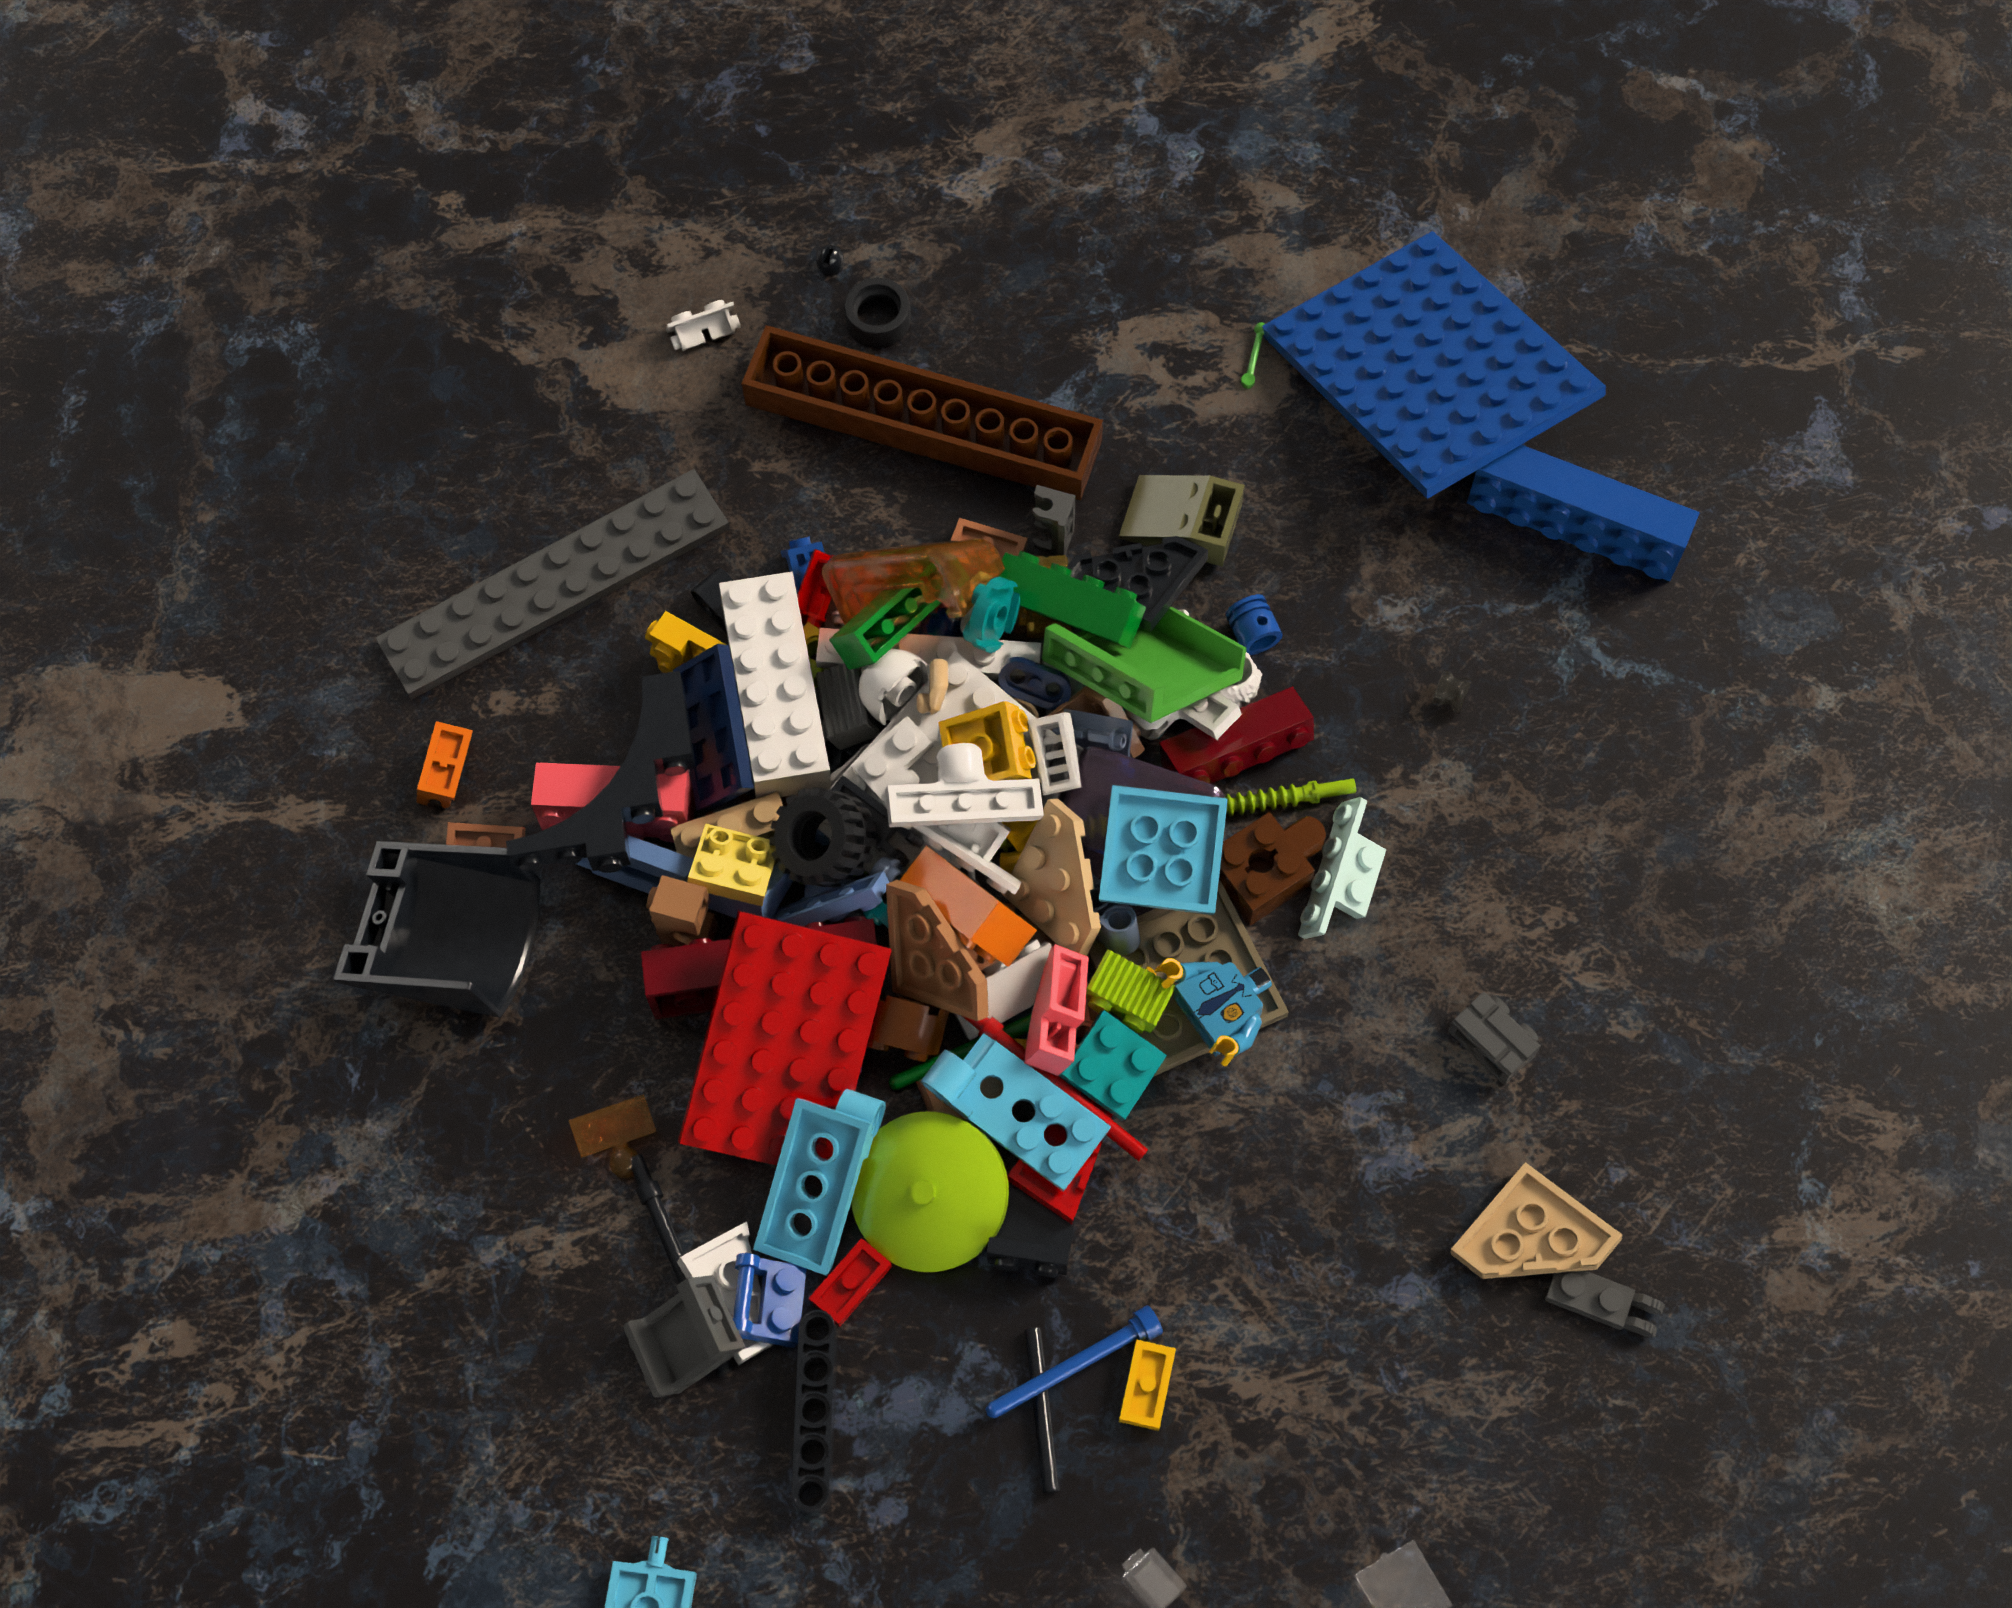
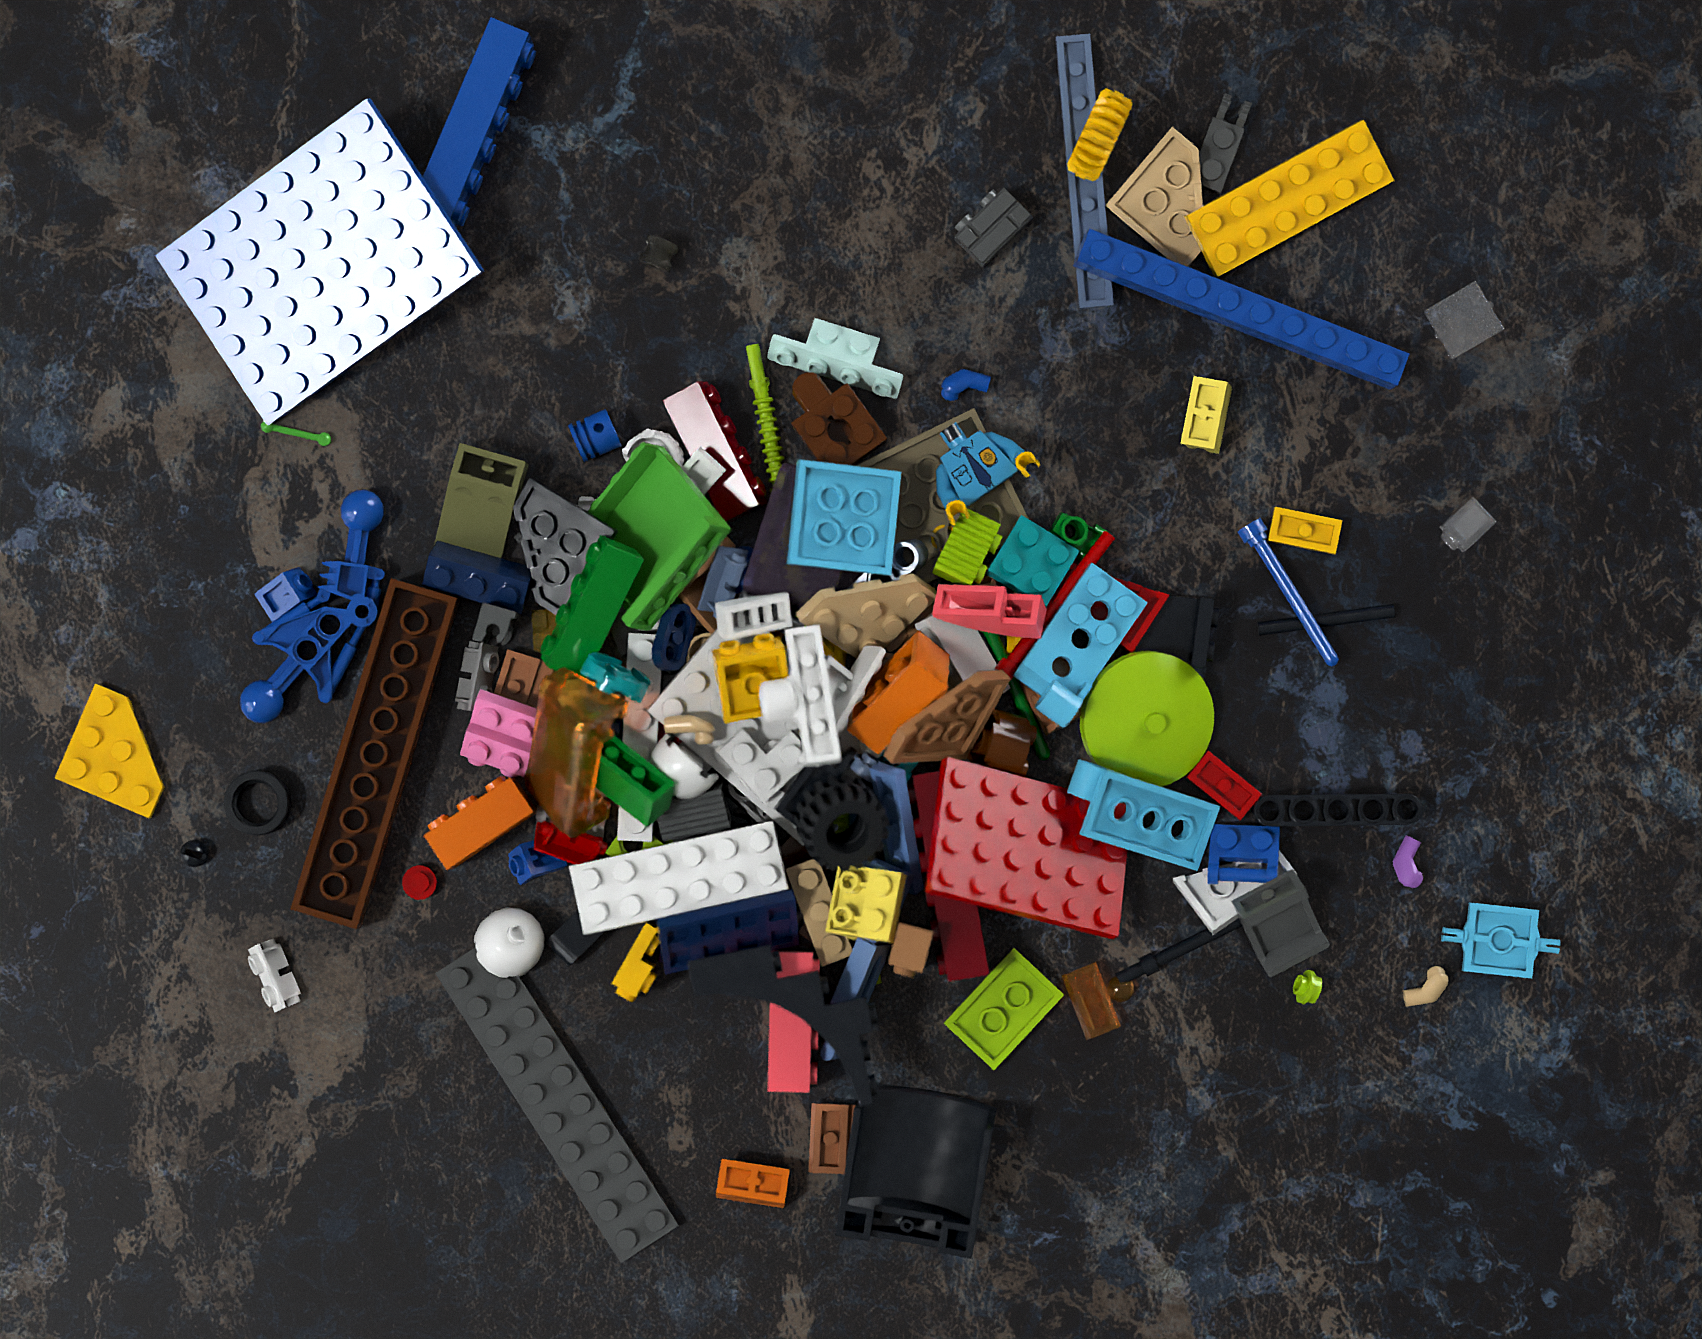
camera: 90 degrees left, 20 degrees up
(595, 1523) = (1430, 991): none -> tan arm
(608, 1372) = (1307, 987): none -> lime plate
(611, 1031) = (1003, 1008): none -> lime plate
(719, 533) = (509, 942): none -> white cylinder
(745, 1495) = (1405, 865): none -> medium lavender arm
(788, 457) = (419, 882): none -> red plate
(844, 498) = (479, 821): none -> orange brick
(931, 191) = (112, 755): none -> yellow plate
(939, 518) = (499, 734): none -> bright pink plate
(1008, 516) = (482, 662): none -> light grey hinge
(1091, 339) = (285, 592): none -> blue bracket
(1101, 391) = (263, 699): none -> blue piece
(1104, 505) = (478, 576): none -> dark blue brick
(1143, 1131) = (1083, 534): none -> green plate
(1284, 1272) = (1206, 414): none -> light yellow hinge
(1320, 1004) = (961, 381): none -> blue arm
(1407, 1313) = (1241, 309): none -> blue brick
(1544, 1375) = (1288, 198): none -> yellow plate
(1563, 1141) = (1085, 196): none -> sand blue plate
(1608, 1142) = (1099, 134): none -> yellow gear

